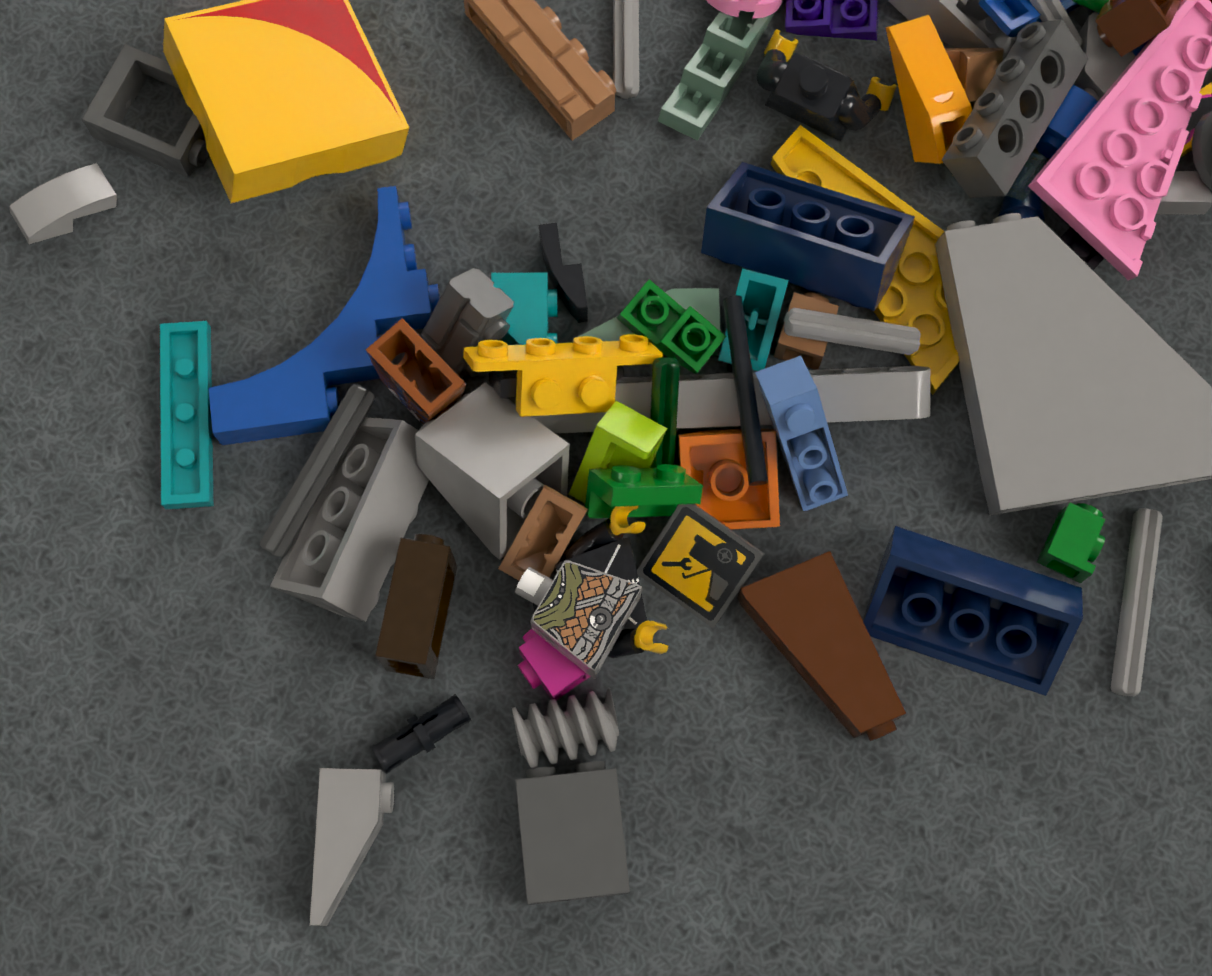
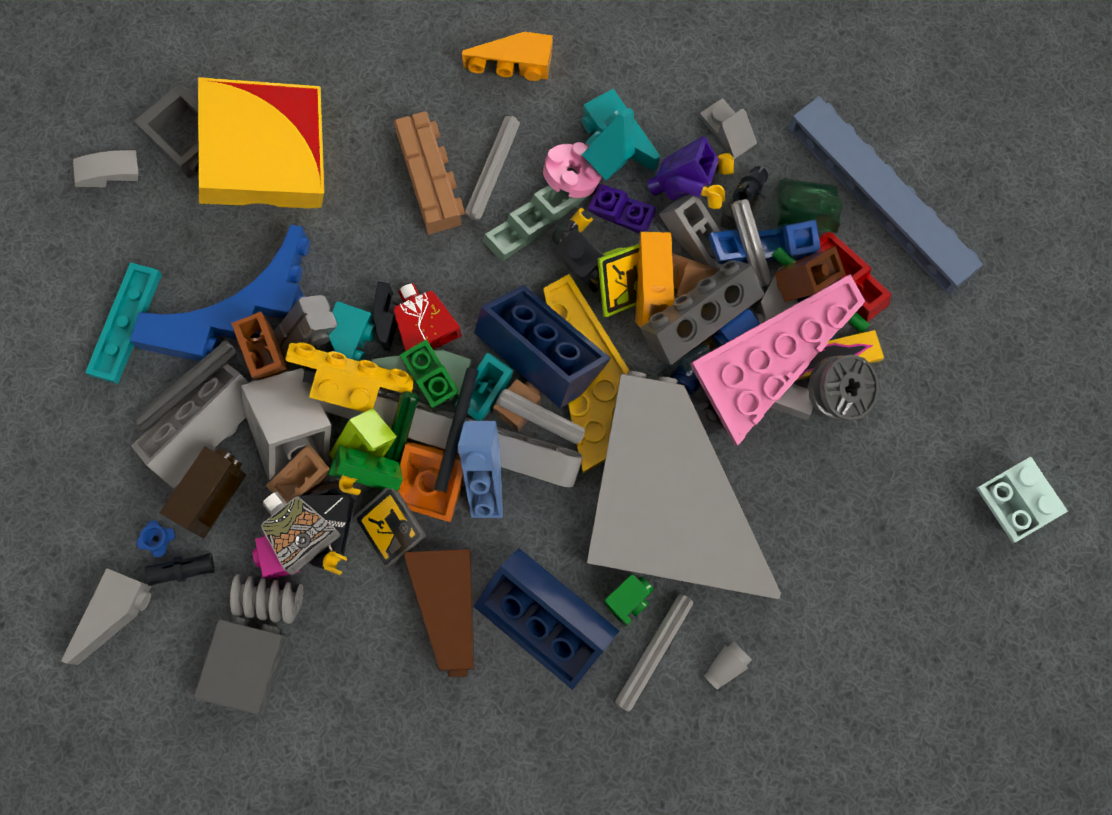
camera: 20 degrees right, 0 degrees up
(355, 693) = (147, 535): none -> blue plate
(623, 257) = (424, 318): none -> red torso
(878, 105) = (618, 279): none -> piece

